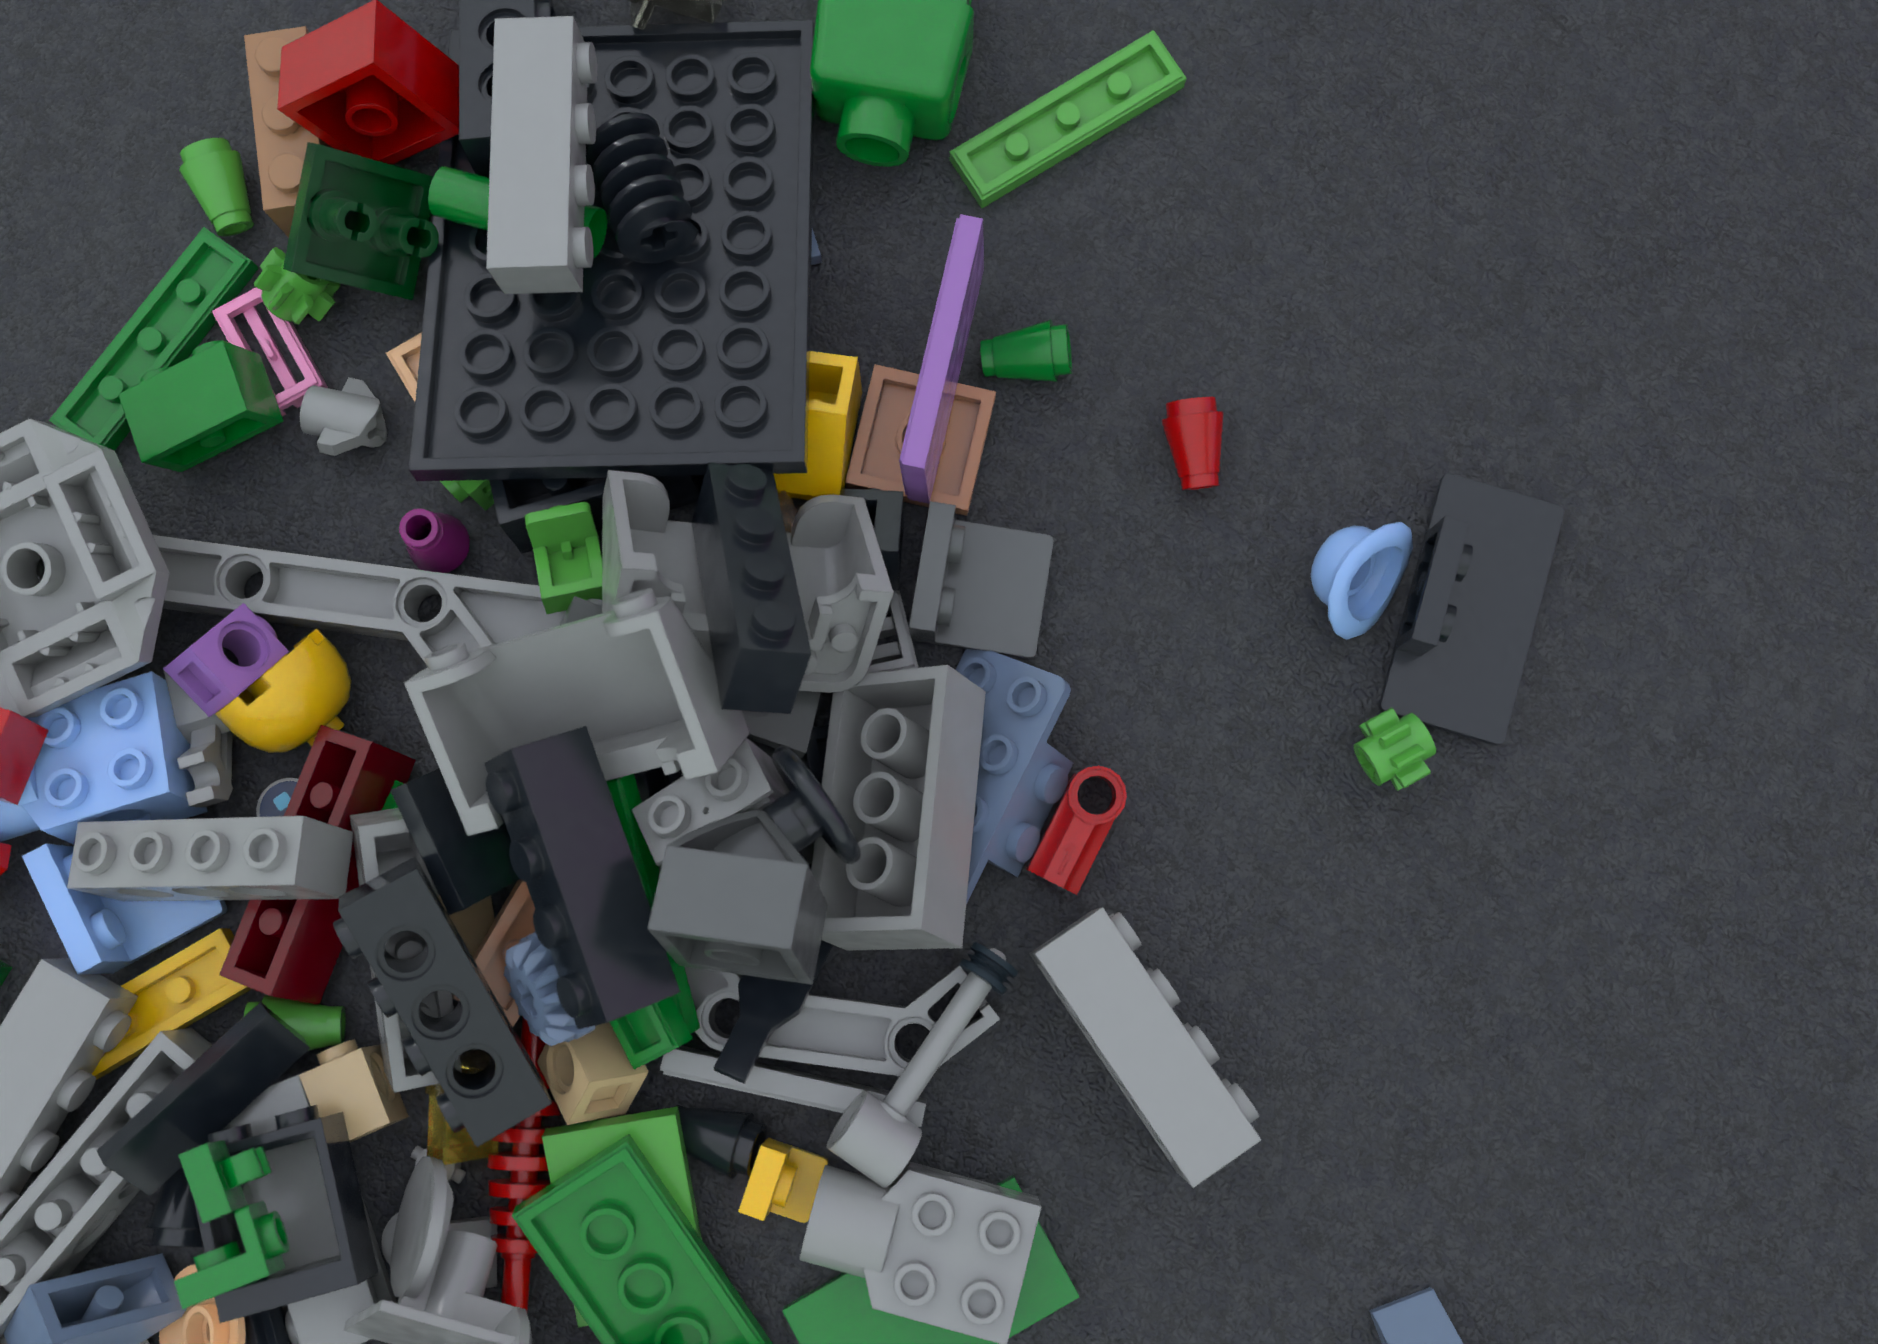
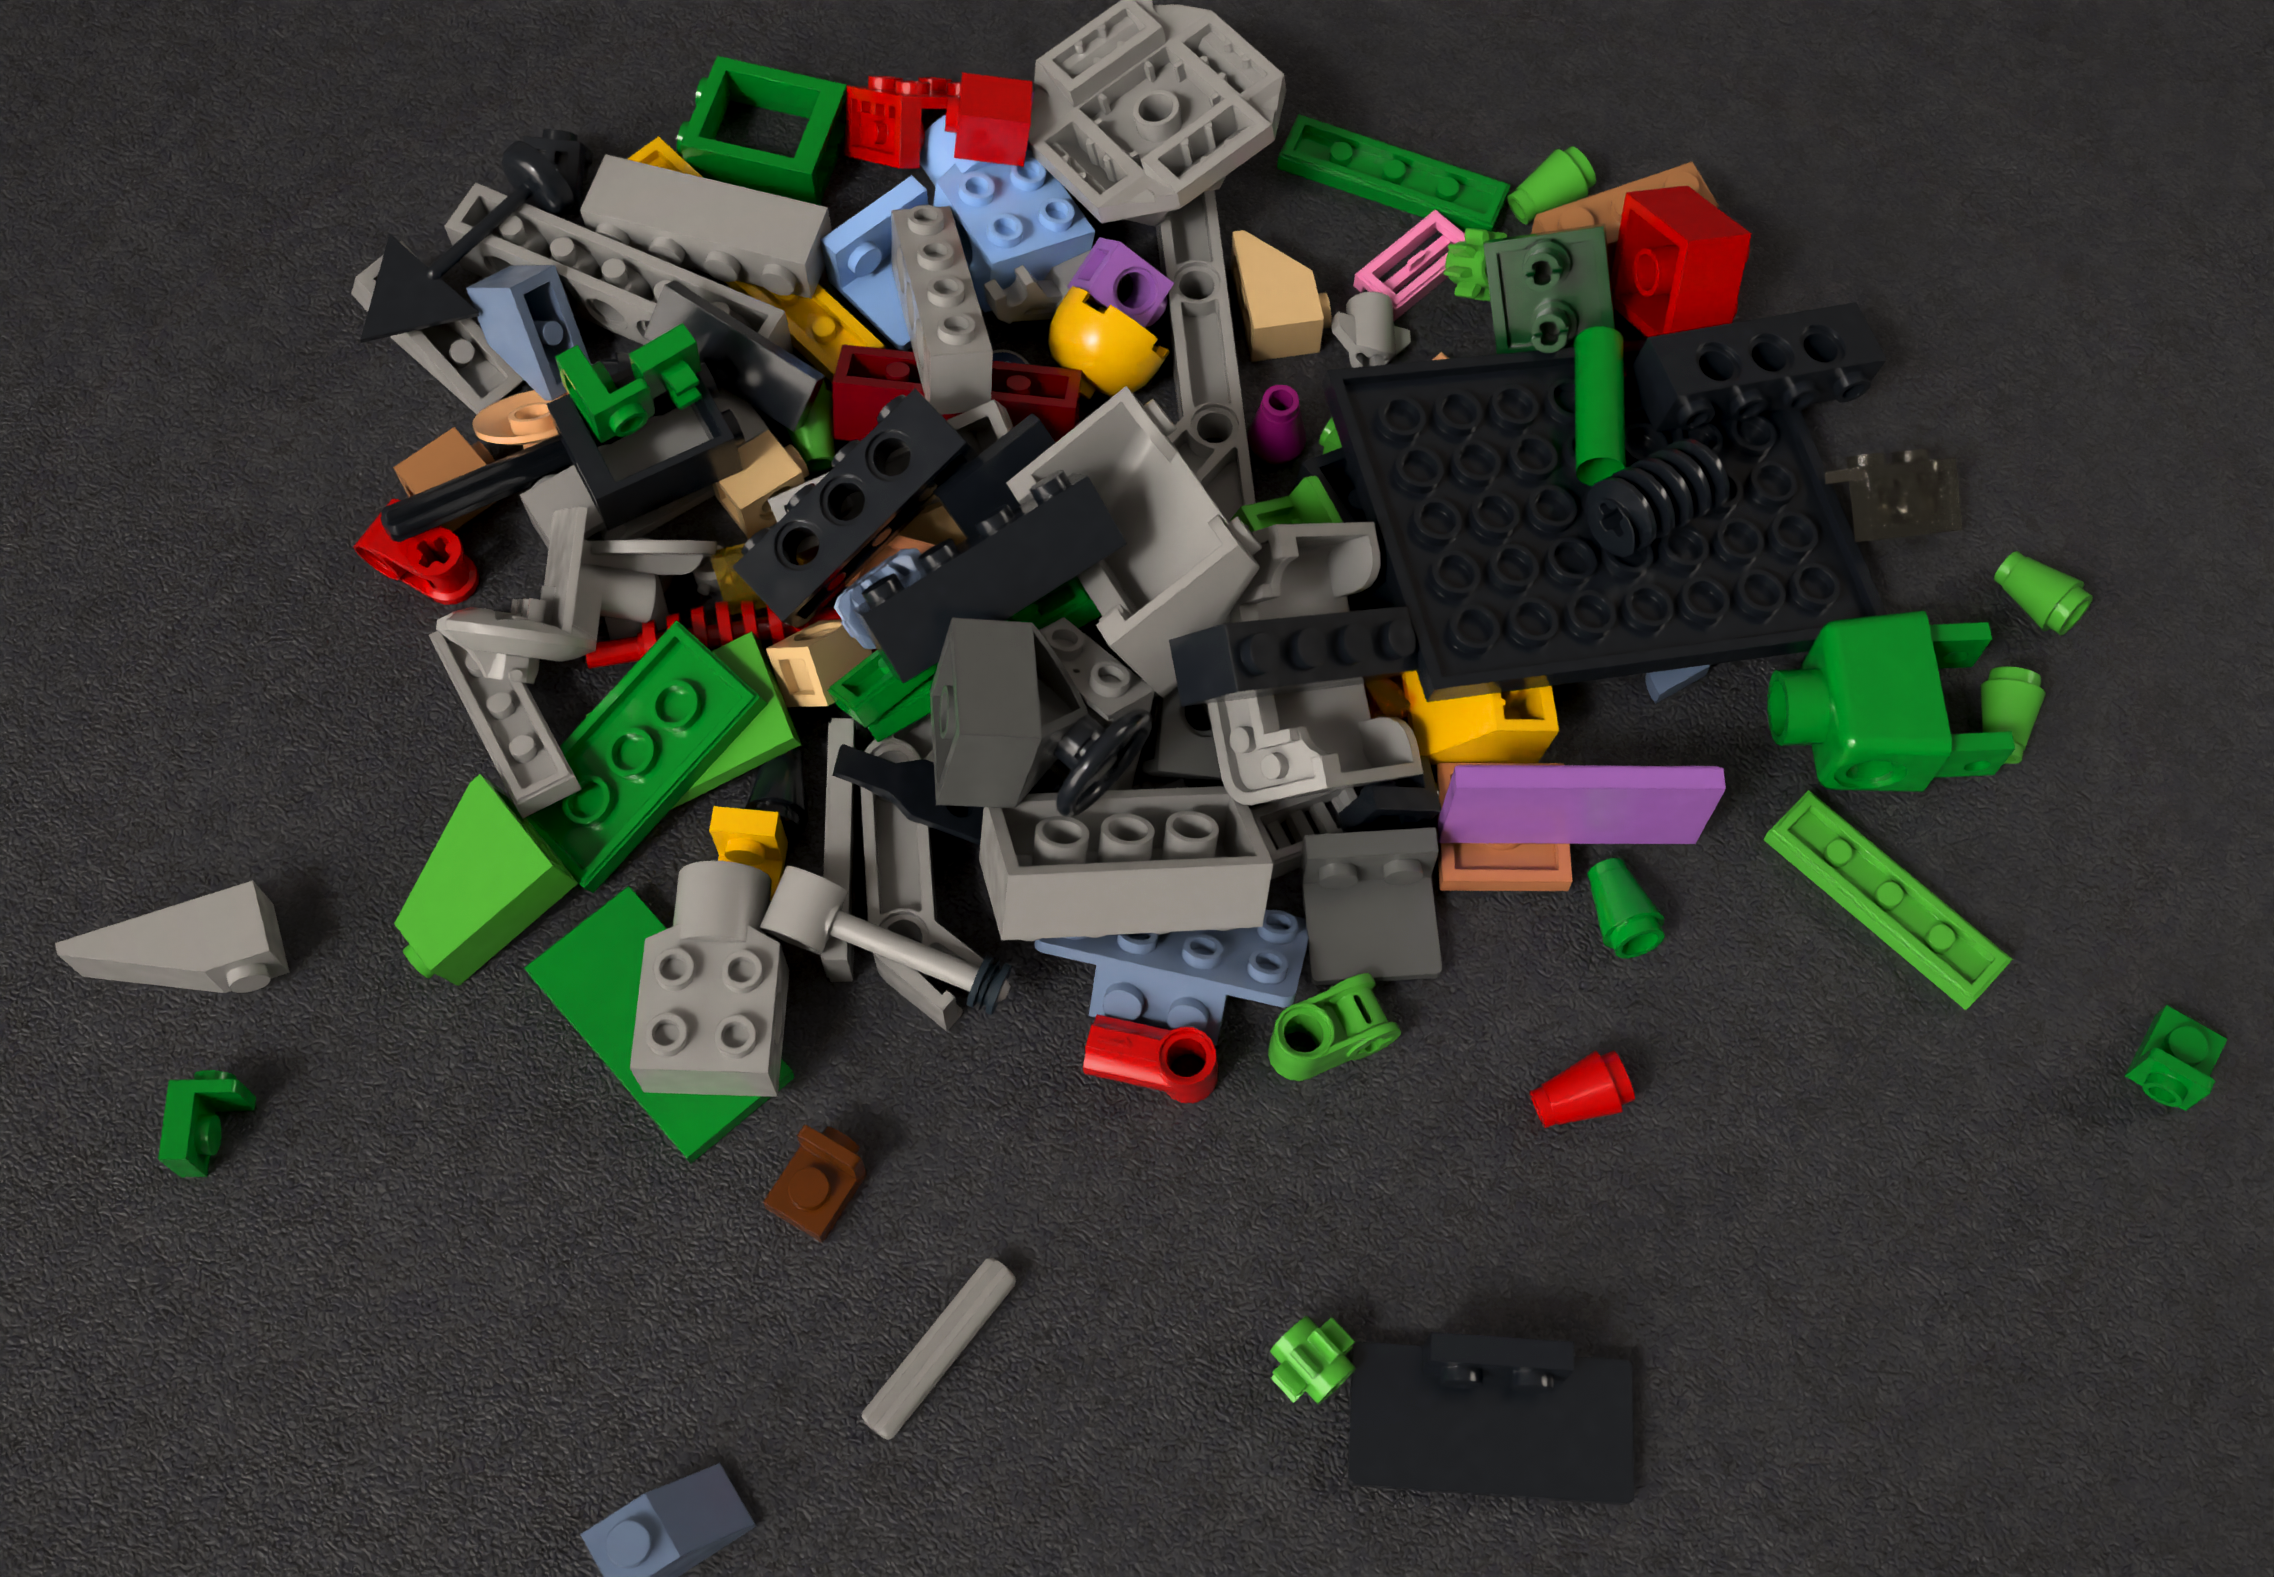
camera: 75 degrees right, 15 degrees down
(200, 406) = (1344, 217): green brick -> none
(278, 502) = (1276, 300): none -> tan slope
(540, 155) = (1651, 394): light grey brick -> none
(1084, 641) = (1342, 1023): none -> bright green piece
(1128, 1173) = (817, 1181): none -> reddish brown bracket
(1146, 1047) = (948, 1150): light grey brick -> none
(1308, 1086) = (938, 1348): none -> light grey axle
(1360, 573) = (1487, 1286): light blue hat -> none

